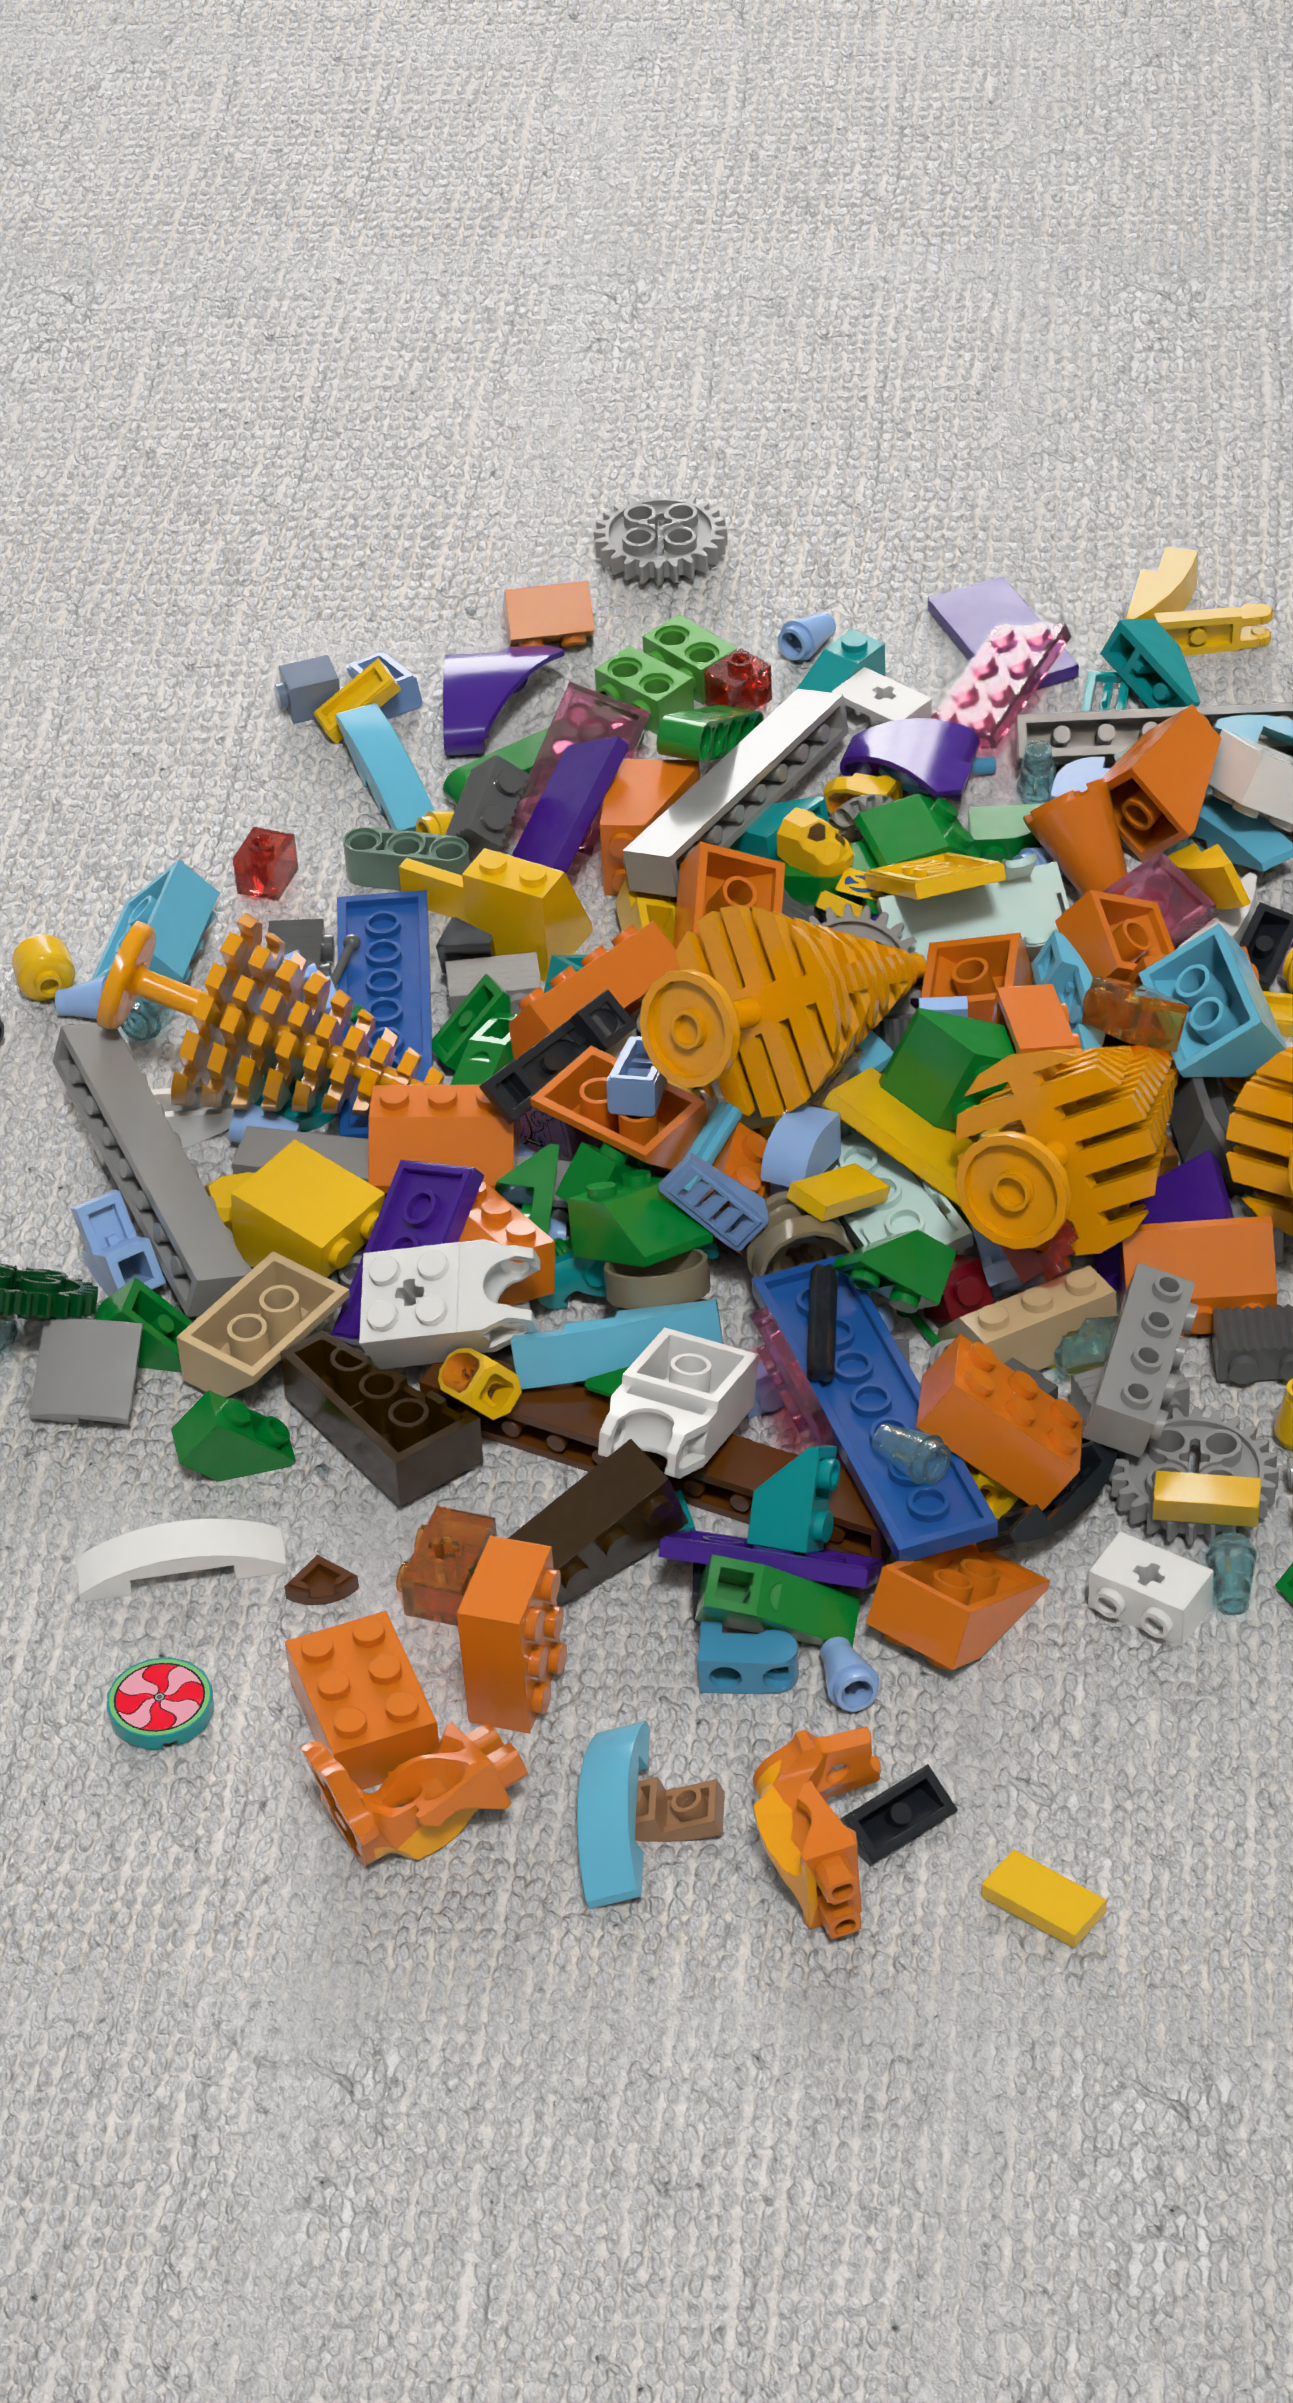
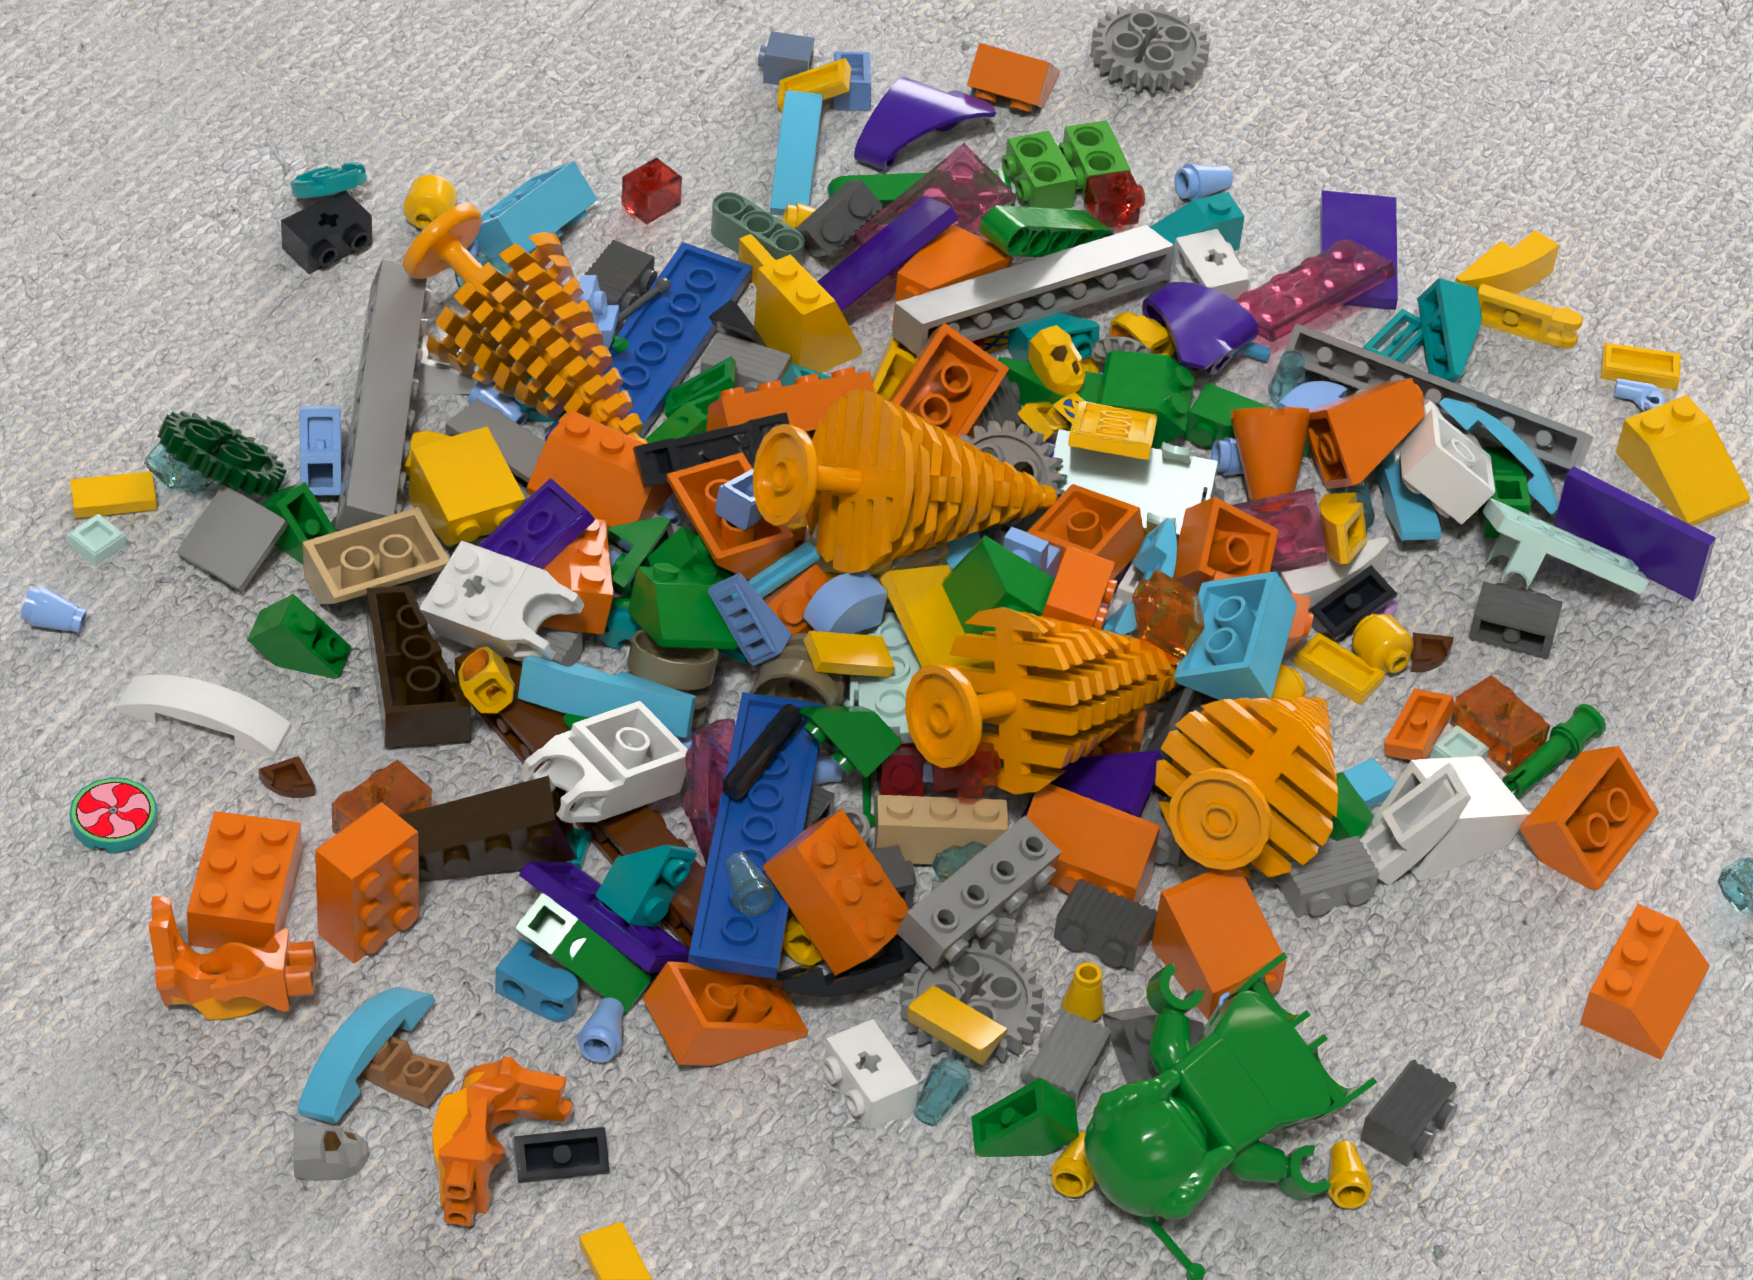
camera: 20 degrees right, 5 degrees up
(652, 1929) = (327, 1152): none -> light grey rock

